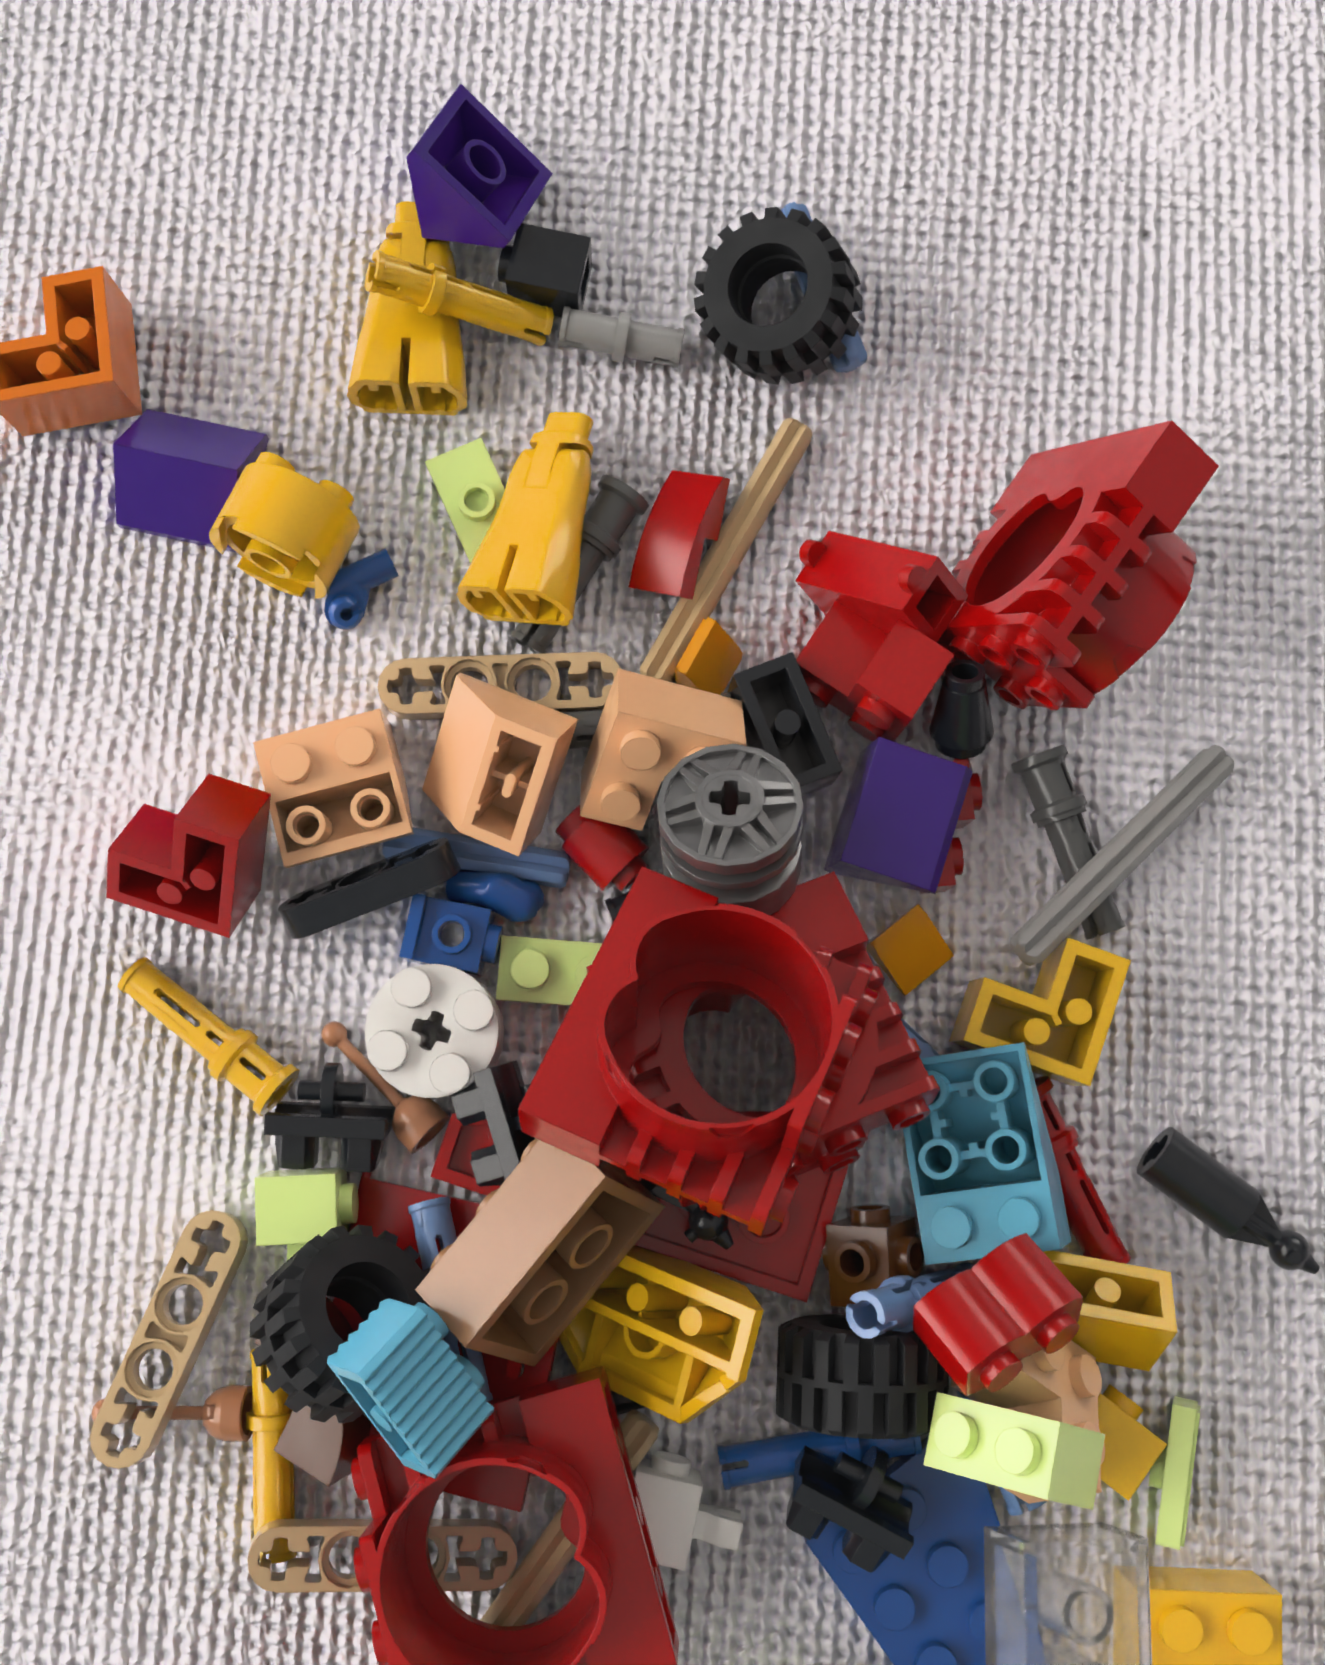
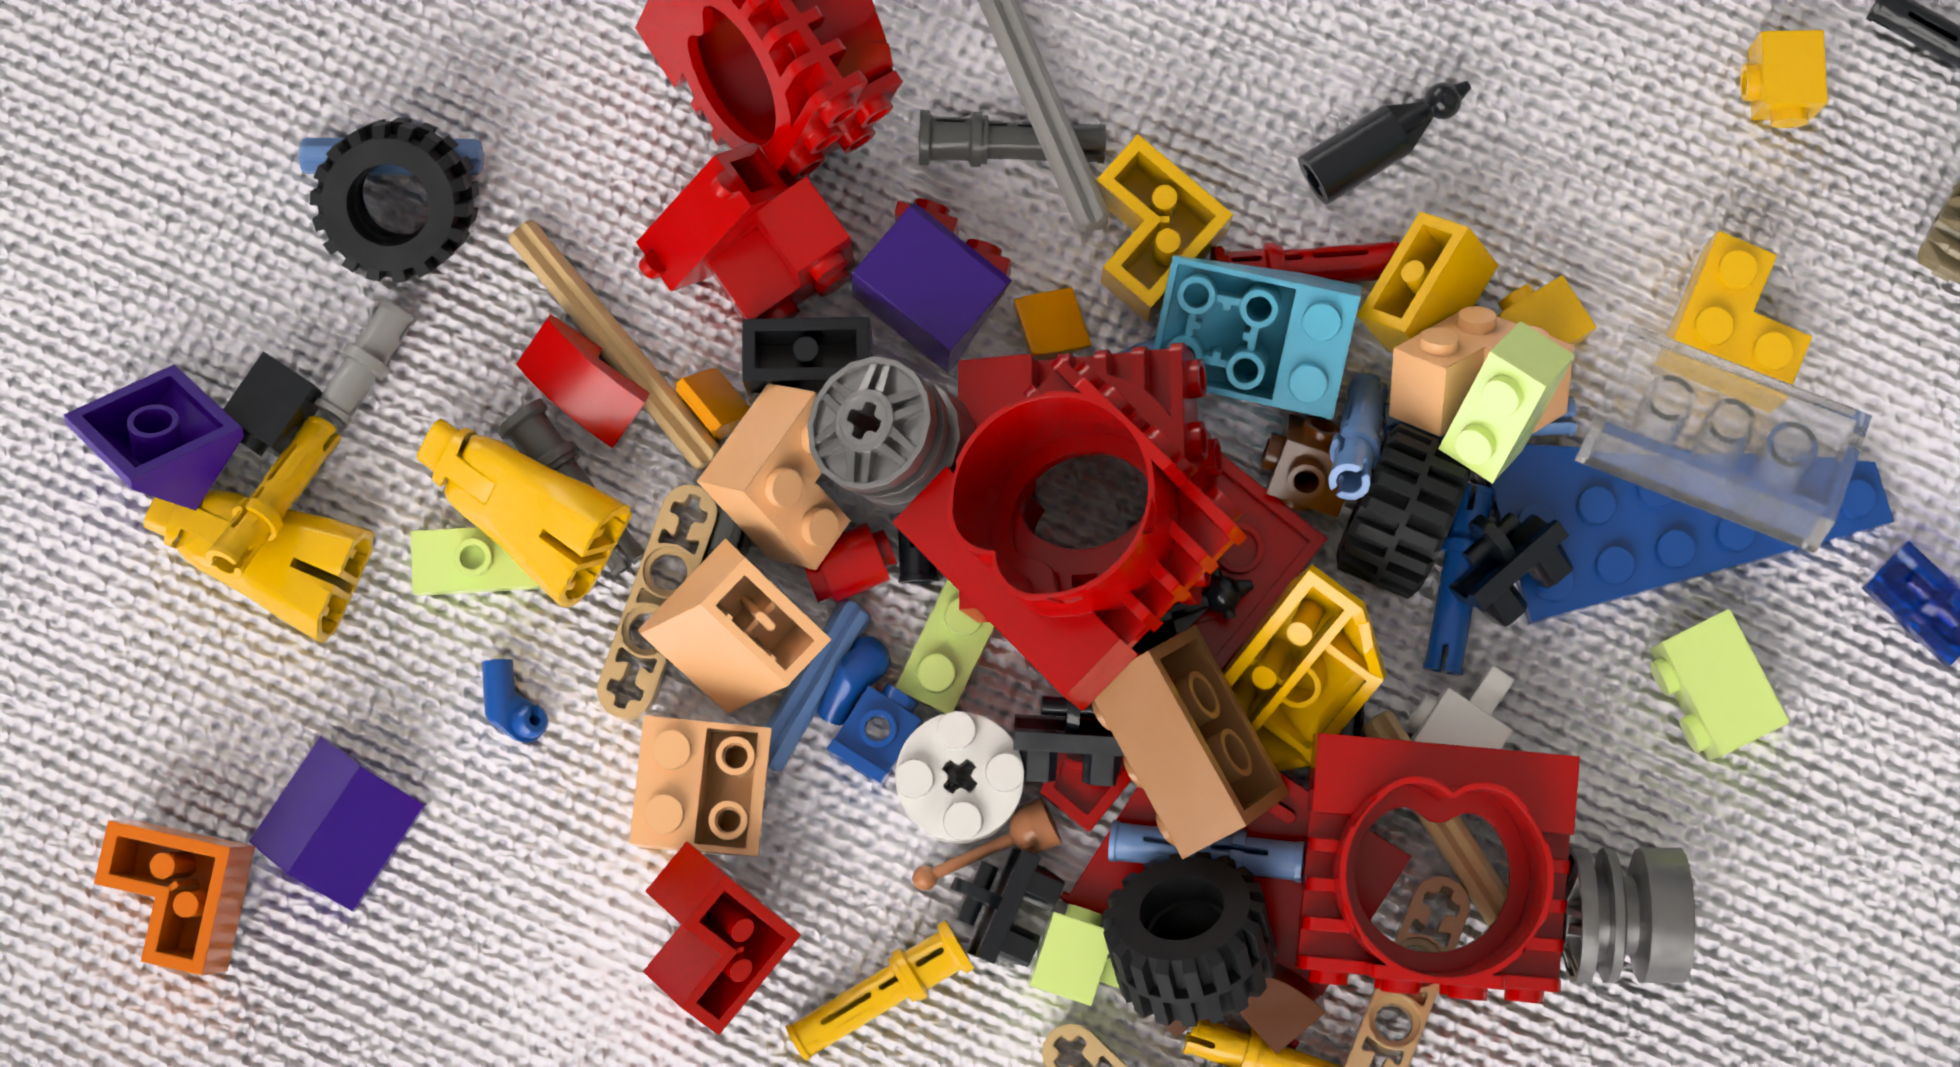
camera: 60 degrees left, 0 degrees up
(286, 526) = (432, 741): yellow brick -> none
(369, 888) = (805, 790): black beam -> none
(412, 1384) = (1261, 884): medium azure brick -> none
(962, 712) = (859, 190): black cone -> none
(998, 1315) = (1391, 370): red brick -> none
(1174, 1473) = (1590, 278): yellowish green plate -> none

